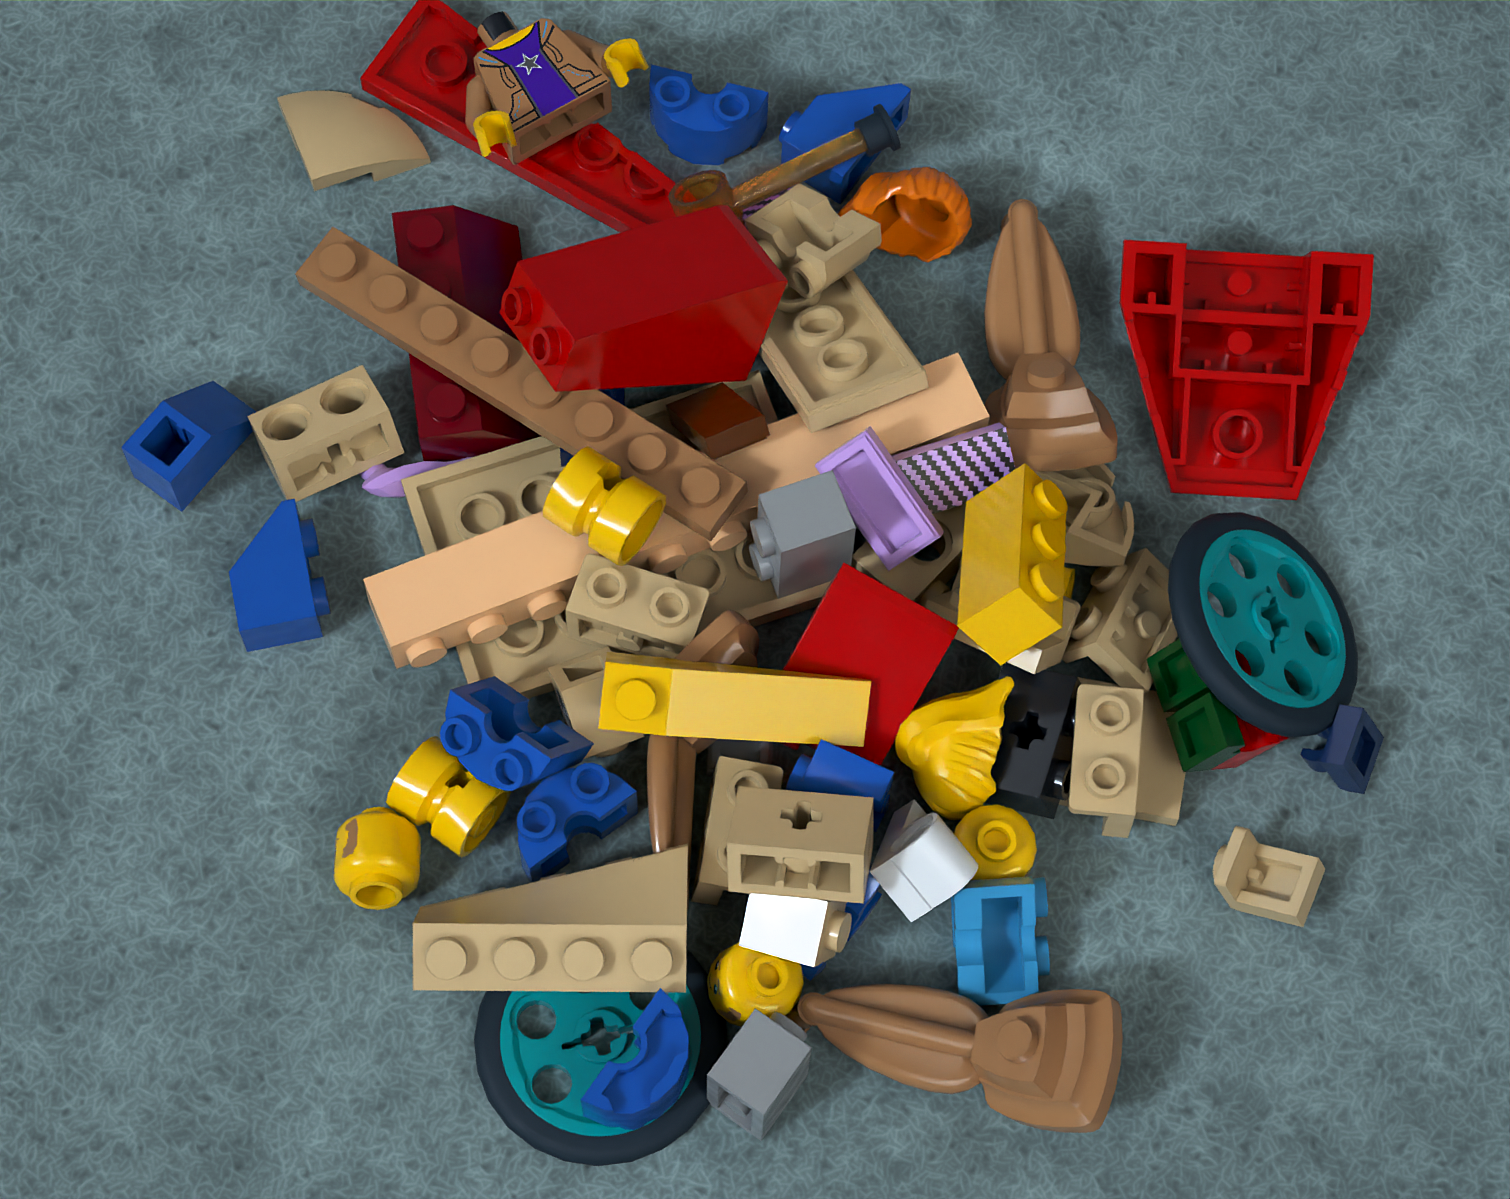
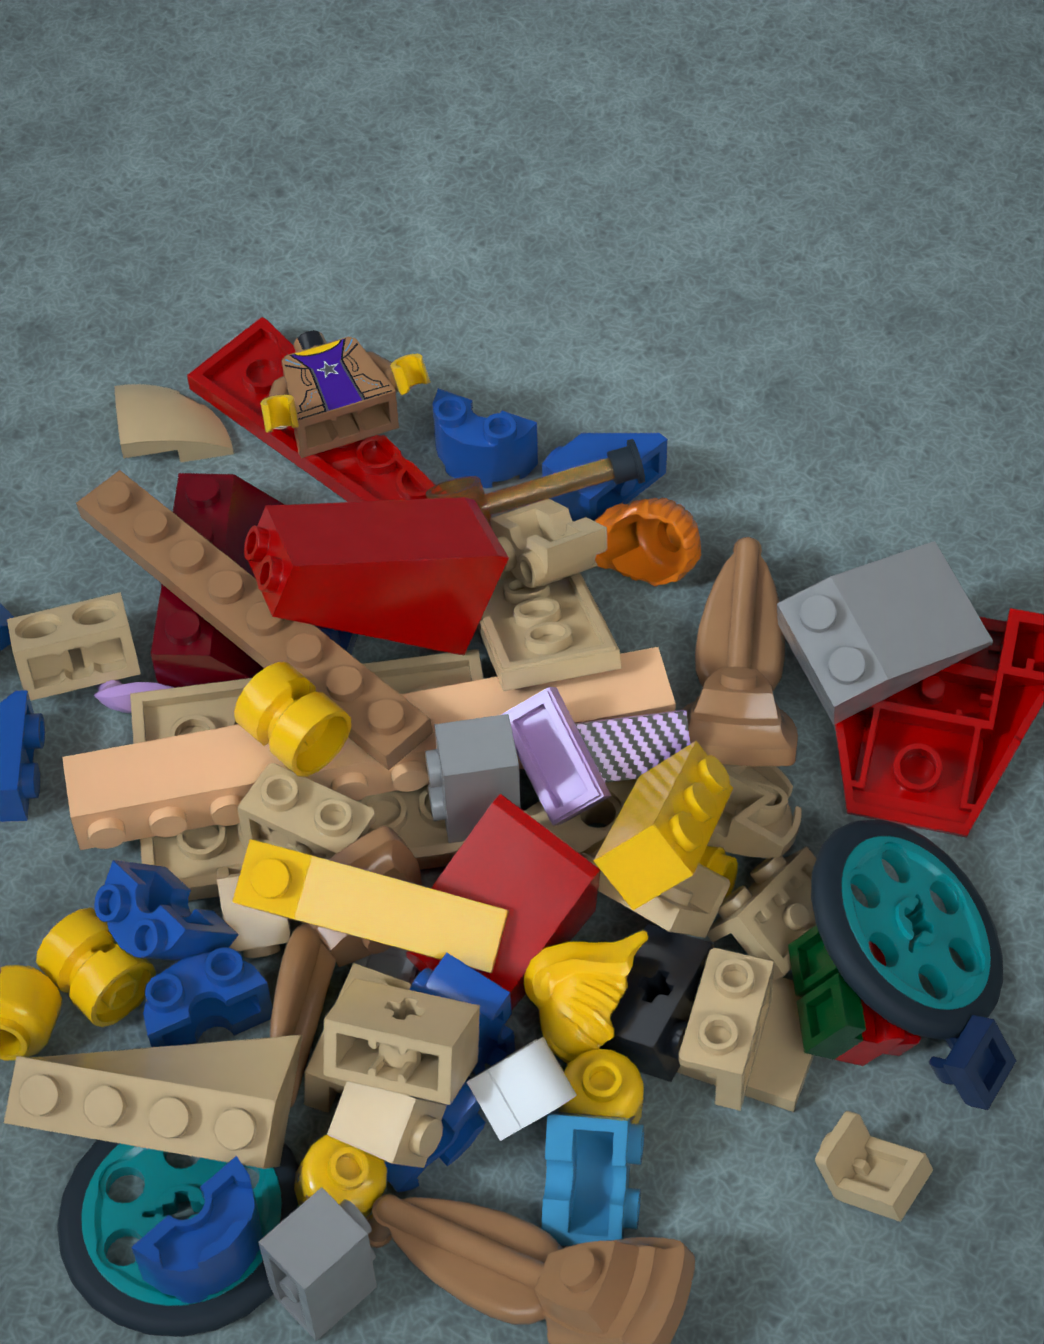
camera: 15 degrees right, 15 degrees down
(718, 420) = (423, 674): reddish brown tile -> none
(1186, 296) = (880, 628): none -> light grey slope

